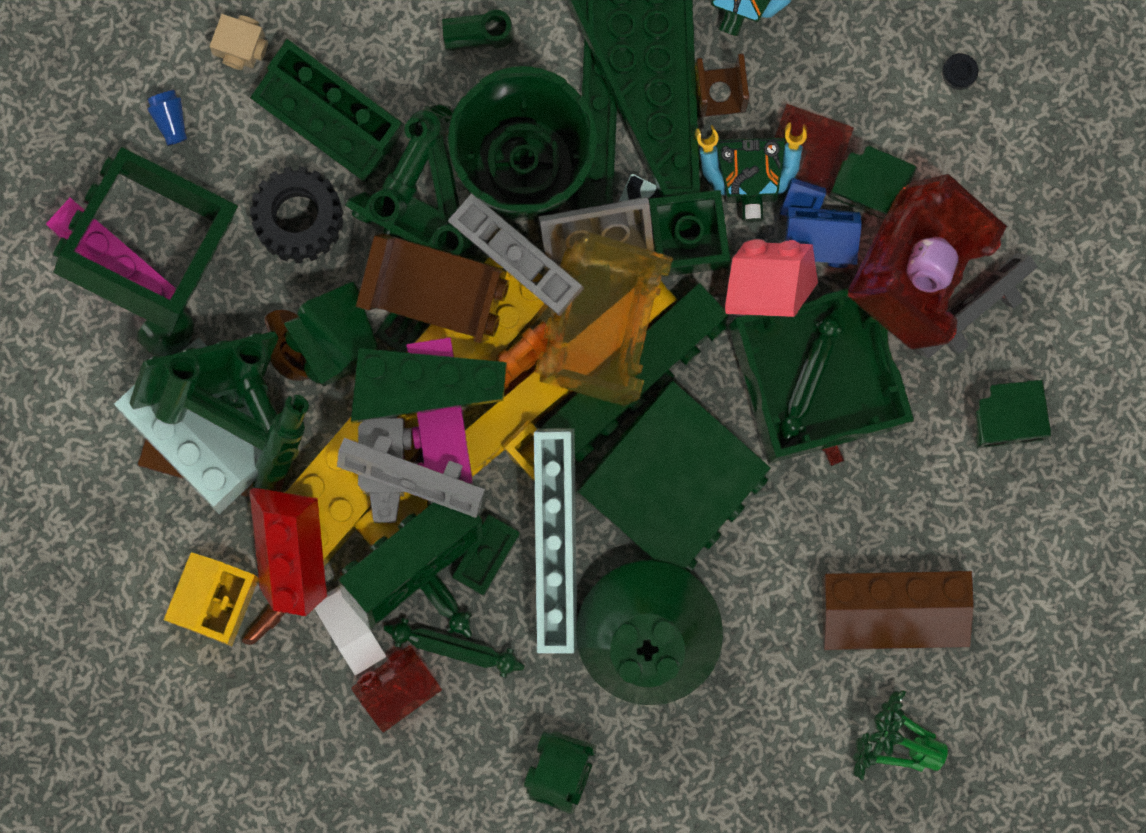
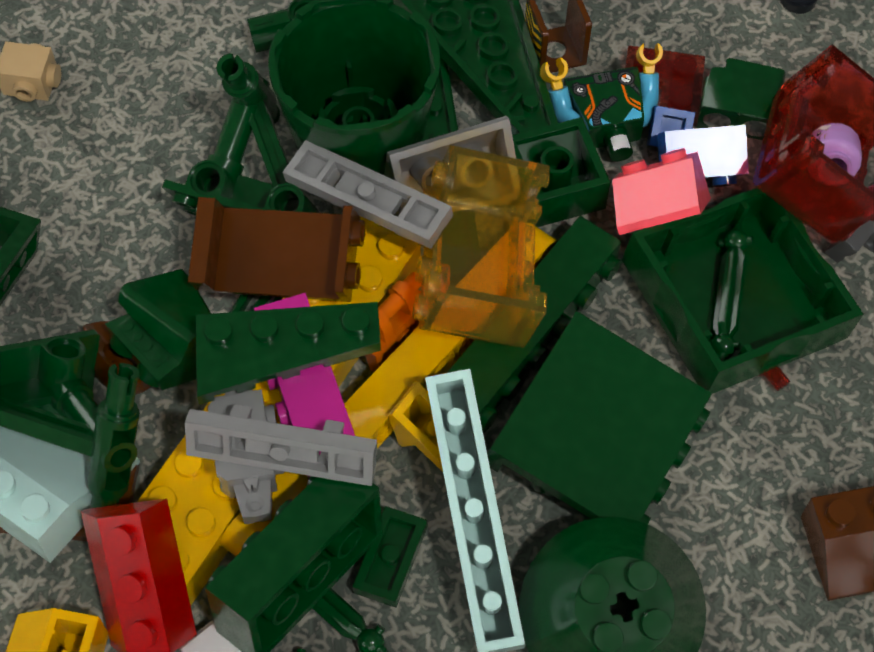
camera: 10 degrees left, 20 degrees down
(305, 243) = (113, 248): black tyre -> none
(327, 111) = (134, 116): dark green brick -> none

